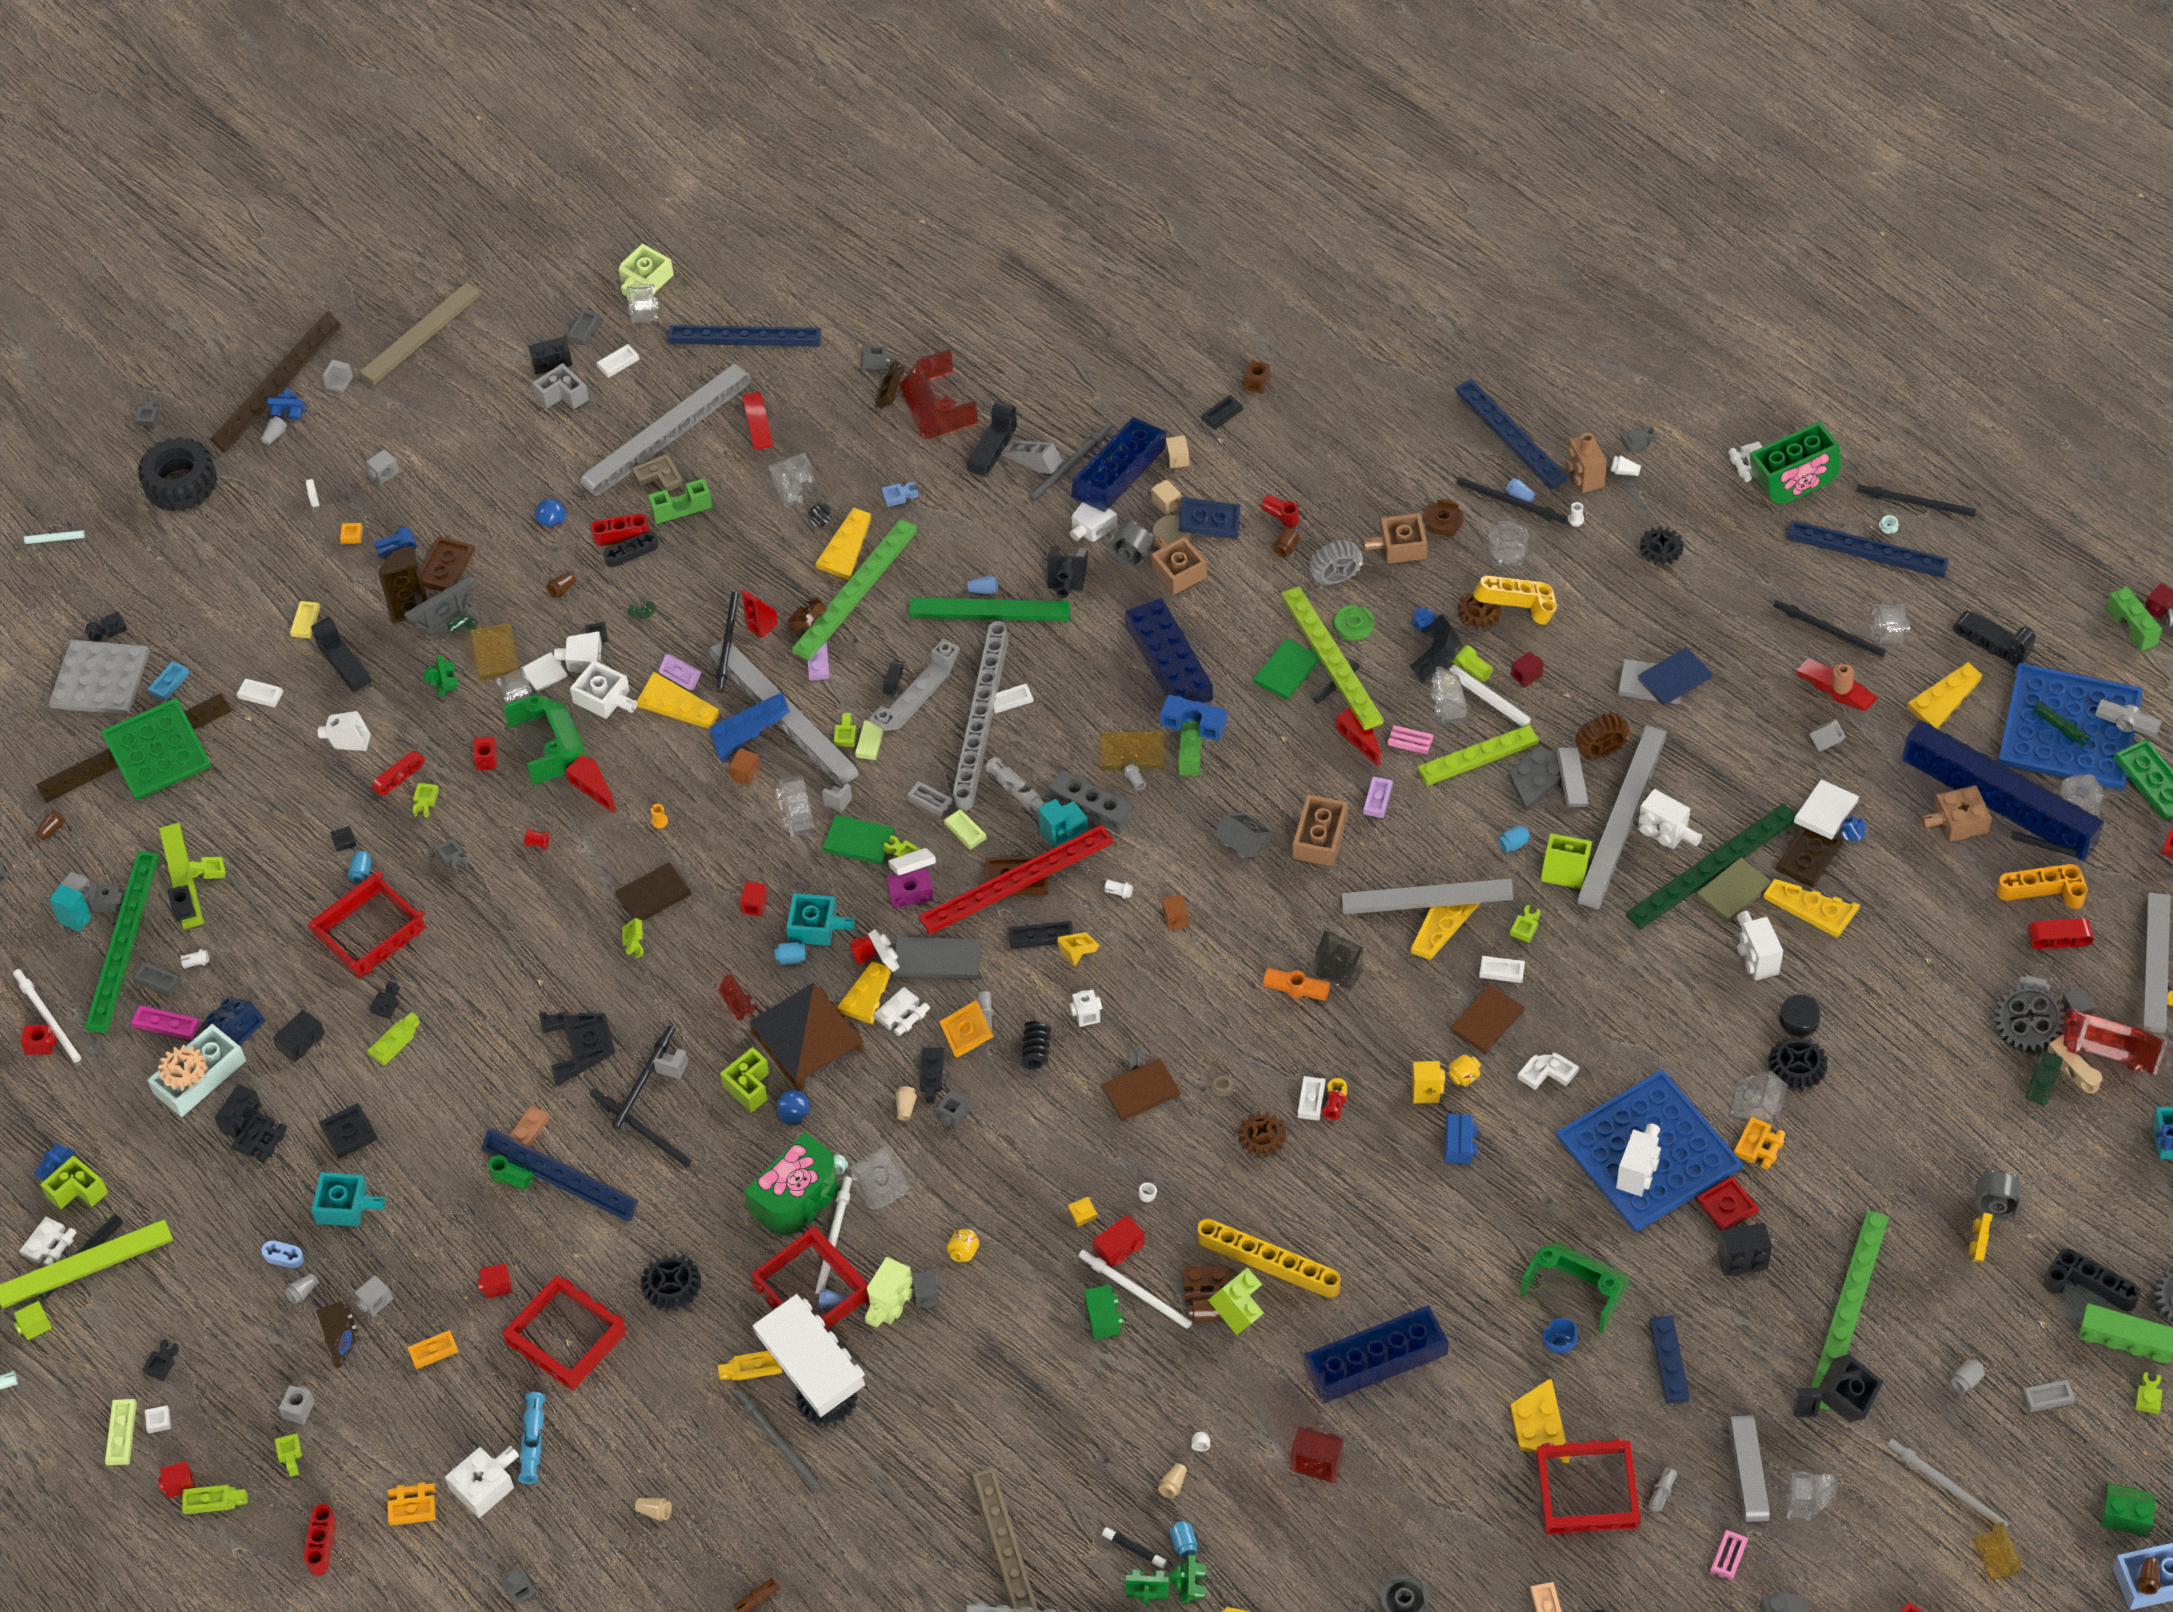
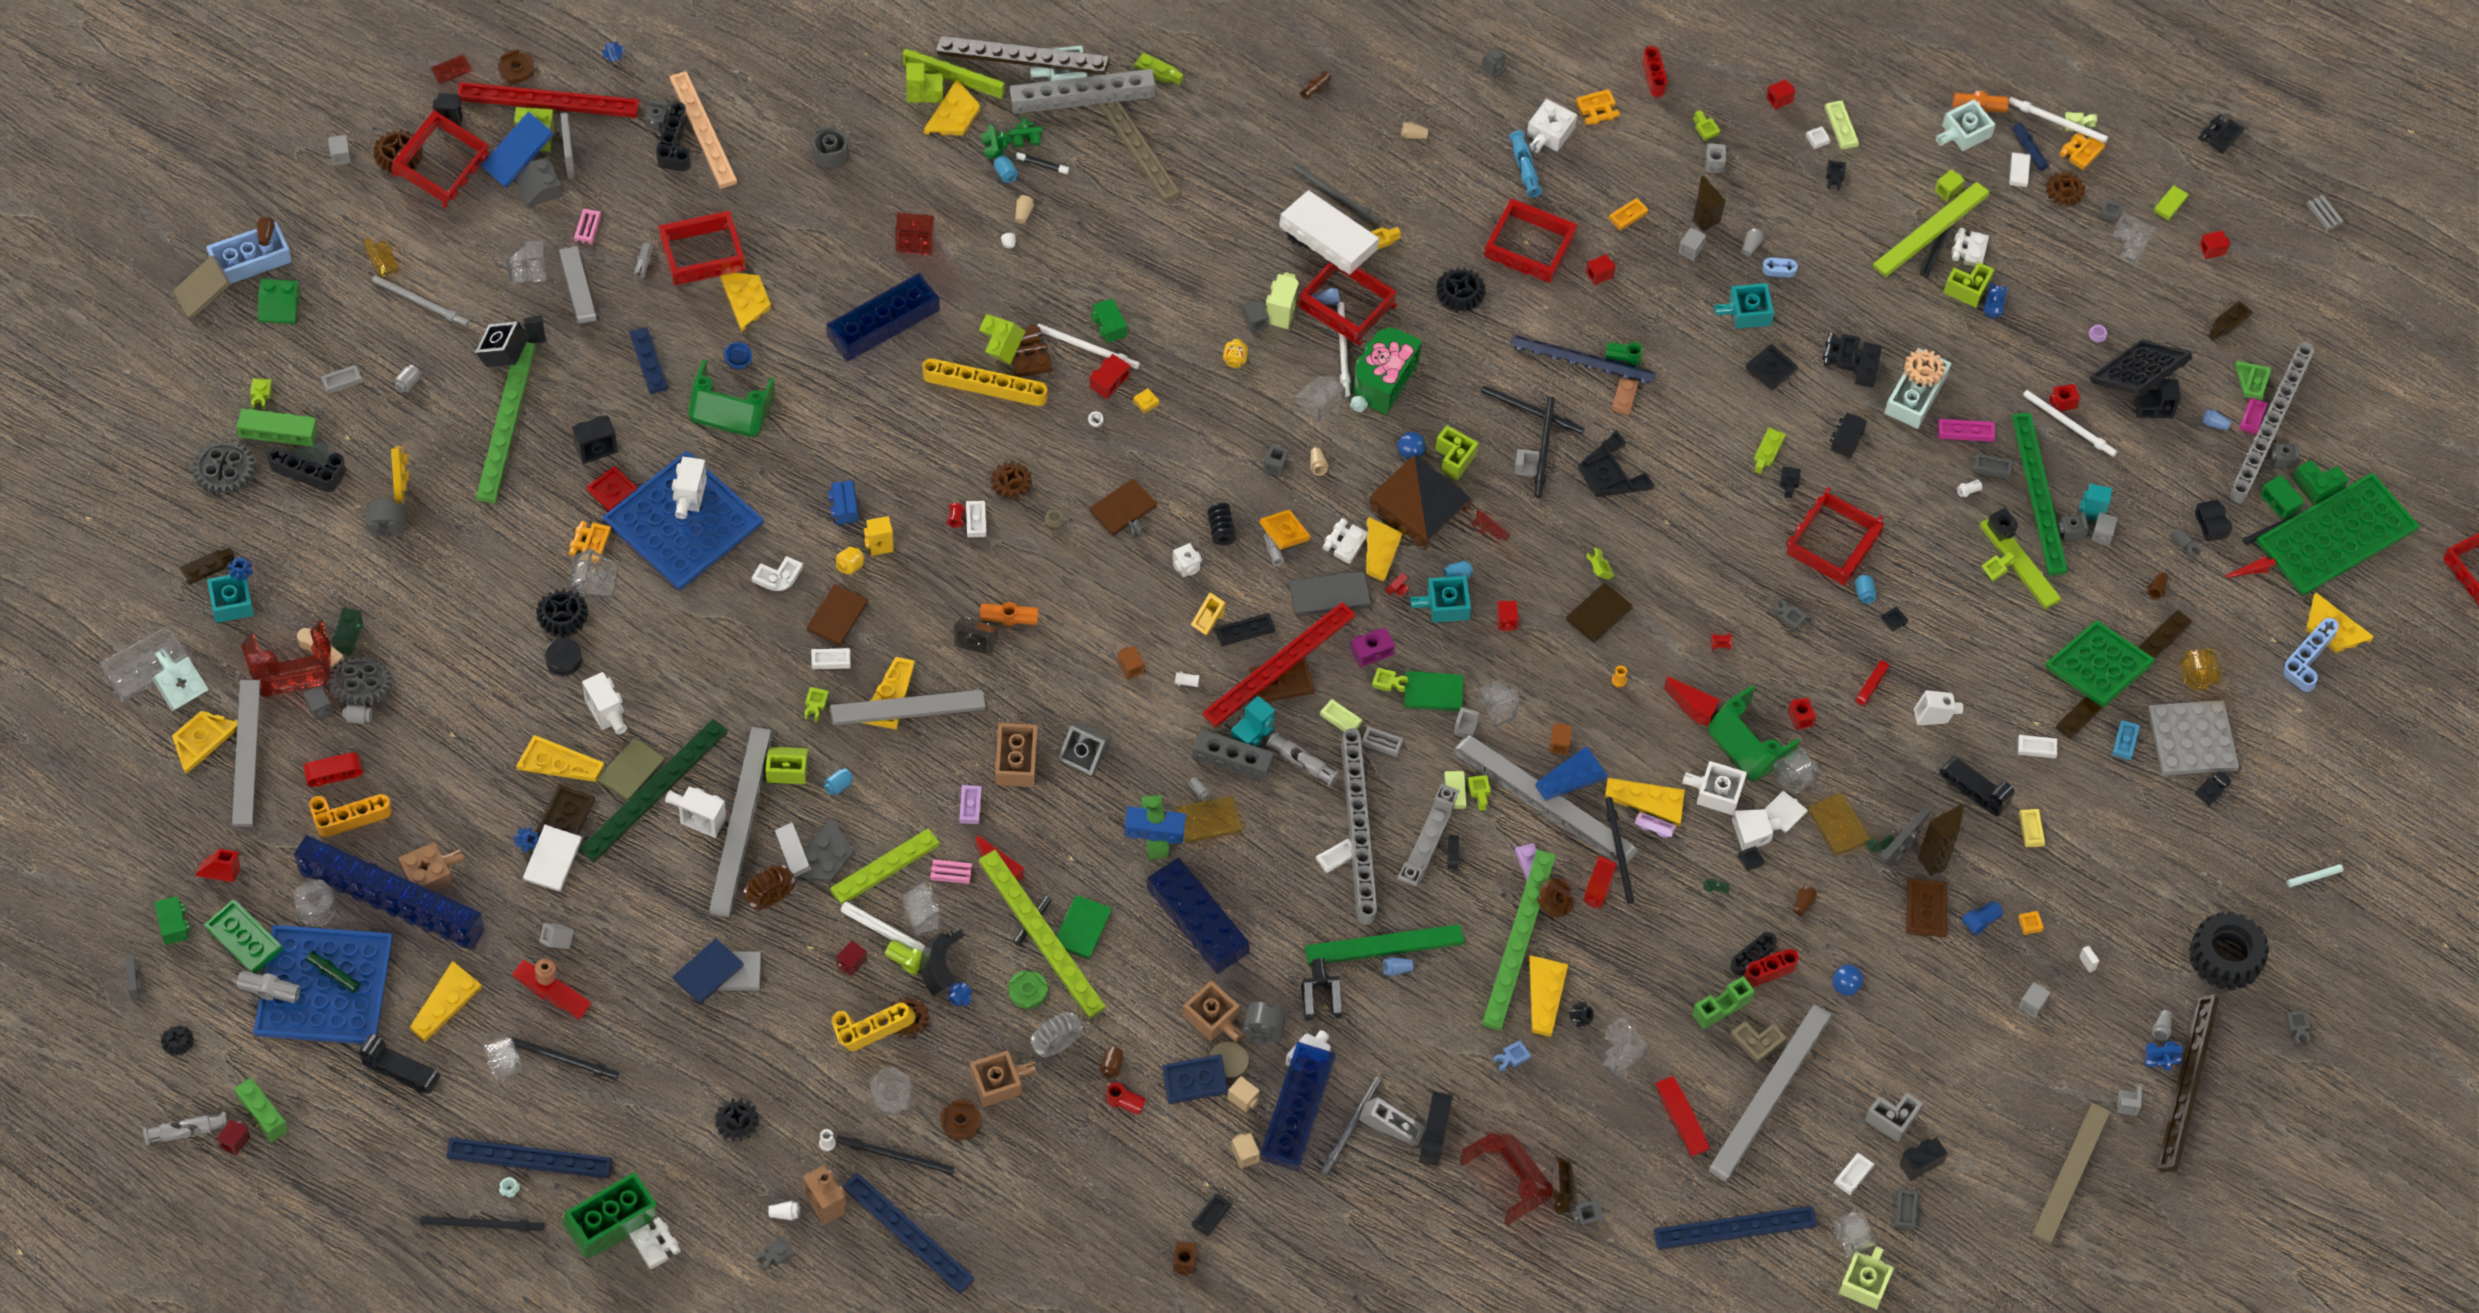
camera: 160 degrees right, 5 degrees up
(57, 726) = (2200, 668): none -> clear yellow brick
(212, 1499) = (1747, 87): lime hinge -> none
(235, 1019) = (1912, 438): dark blue bracket -> none
(424, 796) = (1838, 665): lime plate -> none
(438, 676) = (1878, 792): green hips -> none
(887, 954) = (1376, 582): white plate -> none
(912, 861) = (1376, 661): white tile -> none
(931, 1072) = (1304, 493): black hinge -> none
(1338, 1083) = (956, 538): yellow bush -> none
(1520, 490) = (889, 1164): medium blue cone -> none

